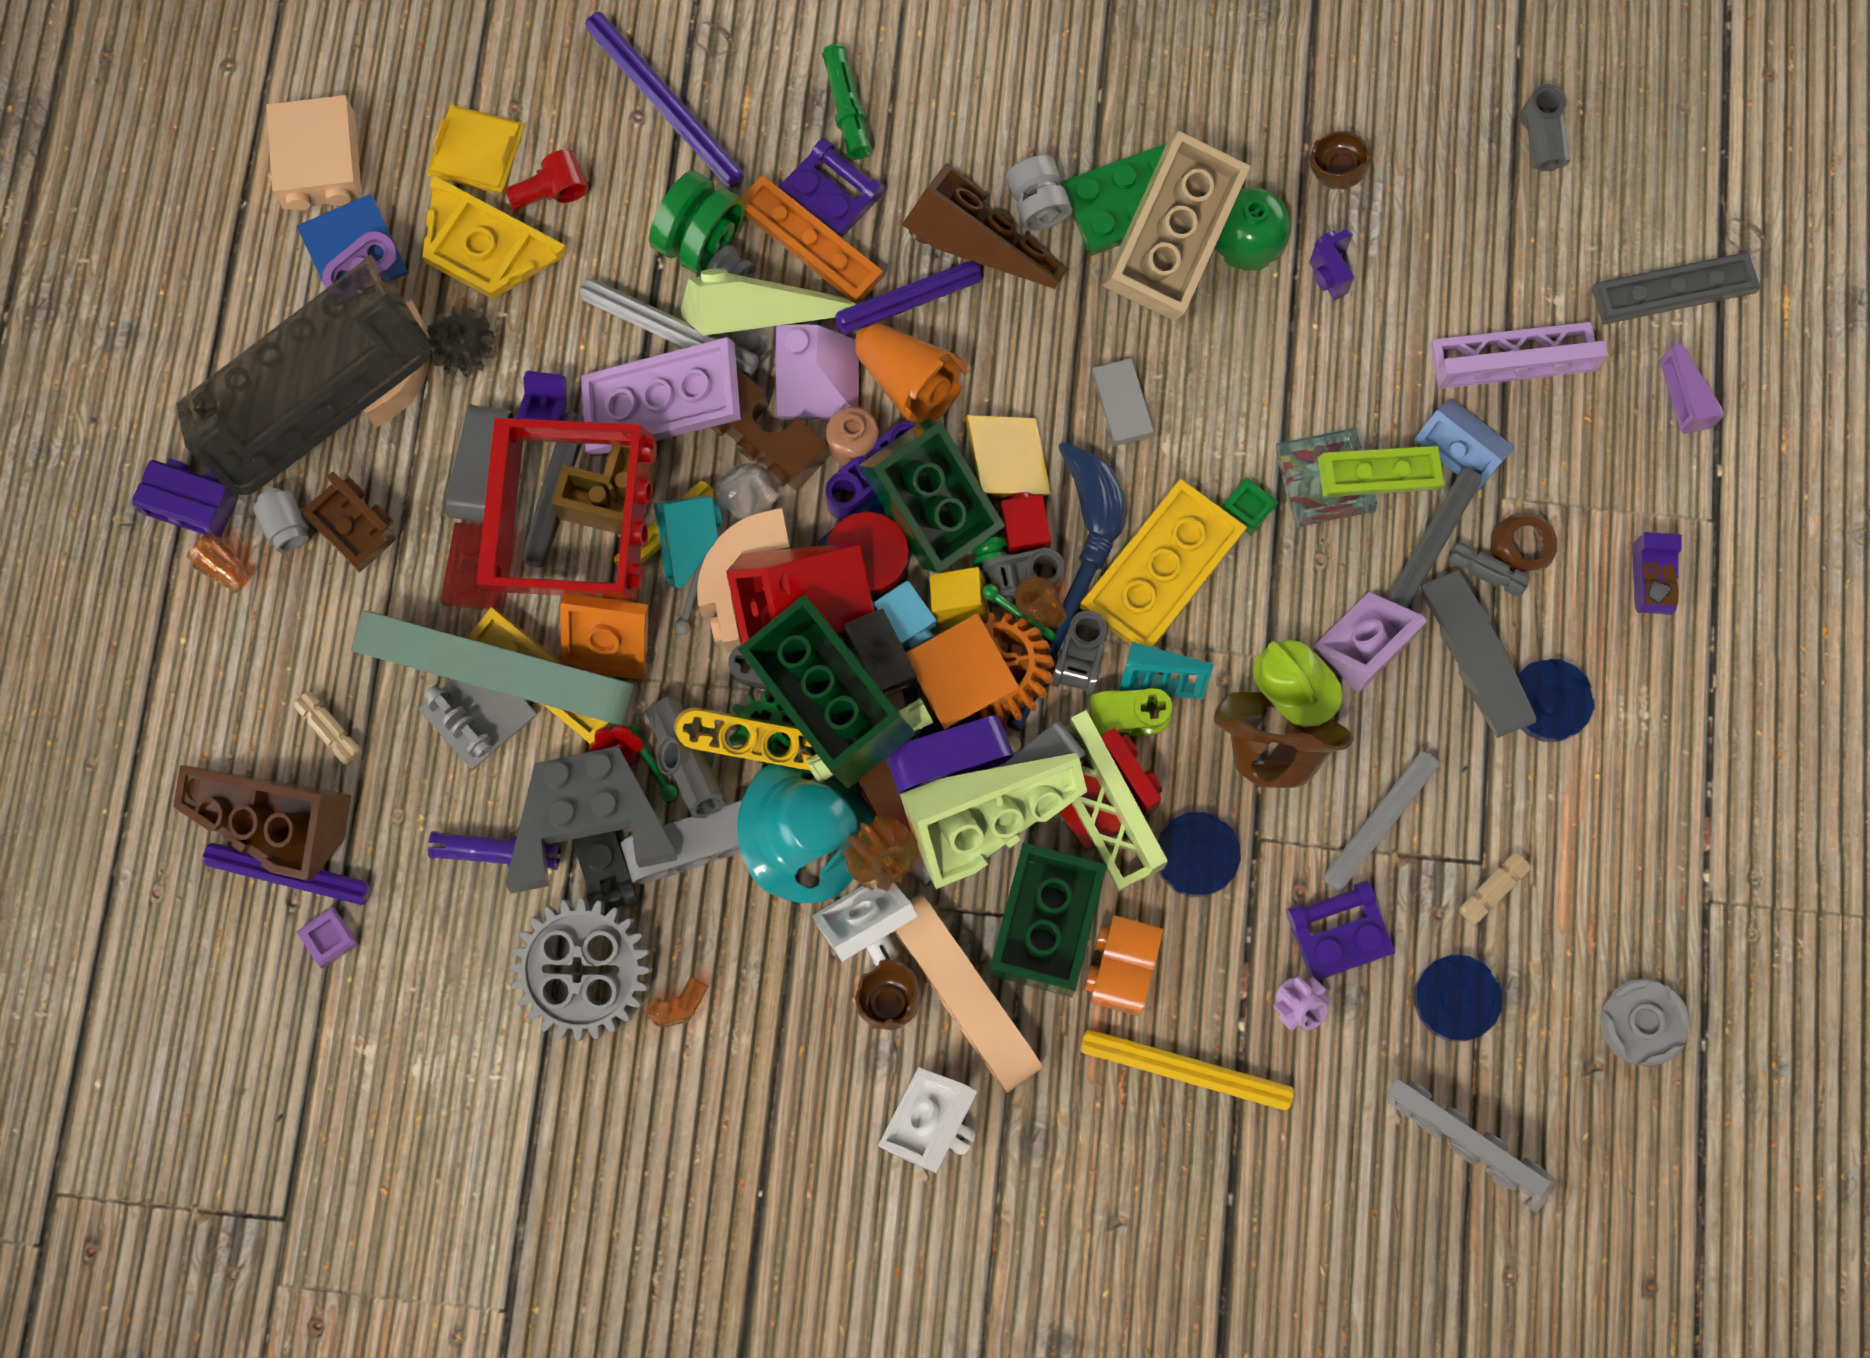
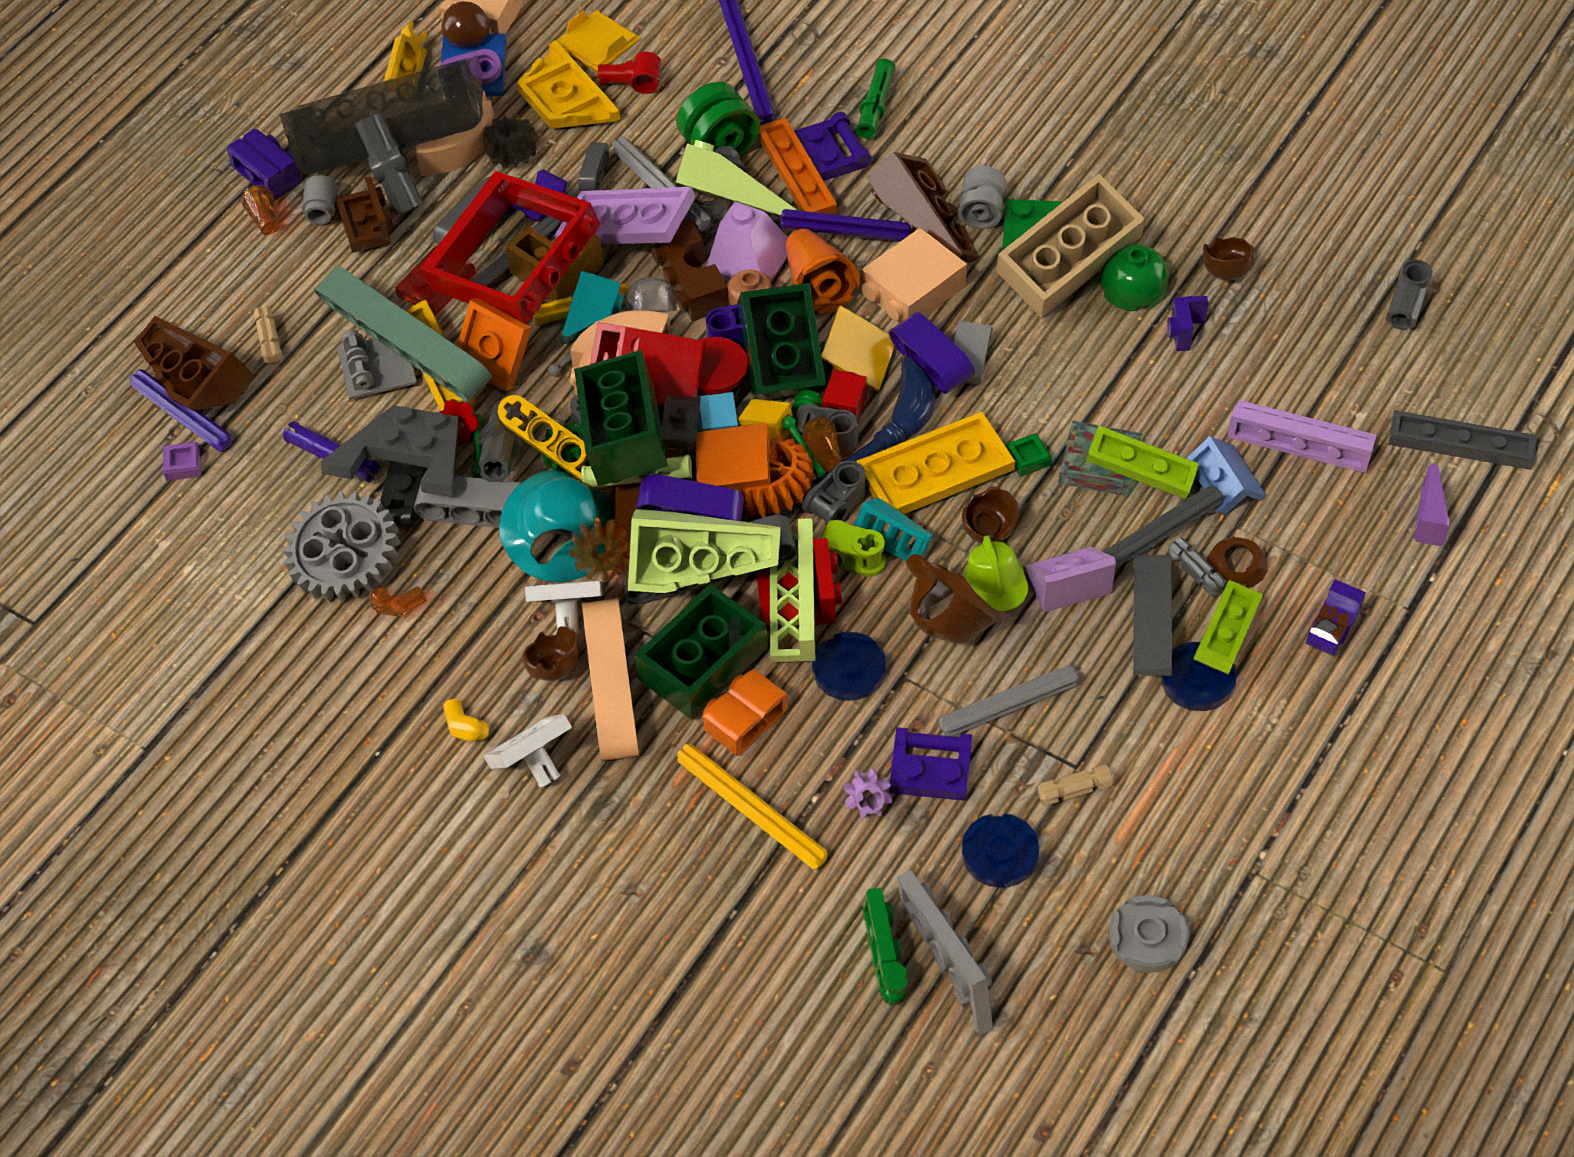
camera: 30 degrees right, 20 degrees down
(268, 276) = (407, 53): none -> yellow plate
(321, 207) = (465, 25): none -> reddish brown hair
(347, 447) = (389, 163): none -> dark grey piece
(578, 337) = (594, 167): none -> dark grey beam
(836, 1122) = (464, 726): none -> yellow arm
(1017, 333) = (913, 276): none -> light nougat brick
(1091, 427) = (932, 352): none -> dark purple beam
(1257, 609) = (990, 514): none -> reddish brown hair
(1406, 1170) = (884, 949): none -> green hinge
(1561, 634) = (1228, 627): none -> lime plate

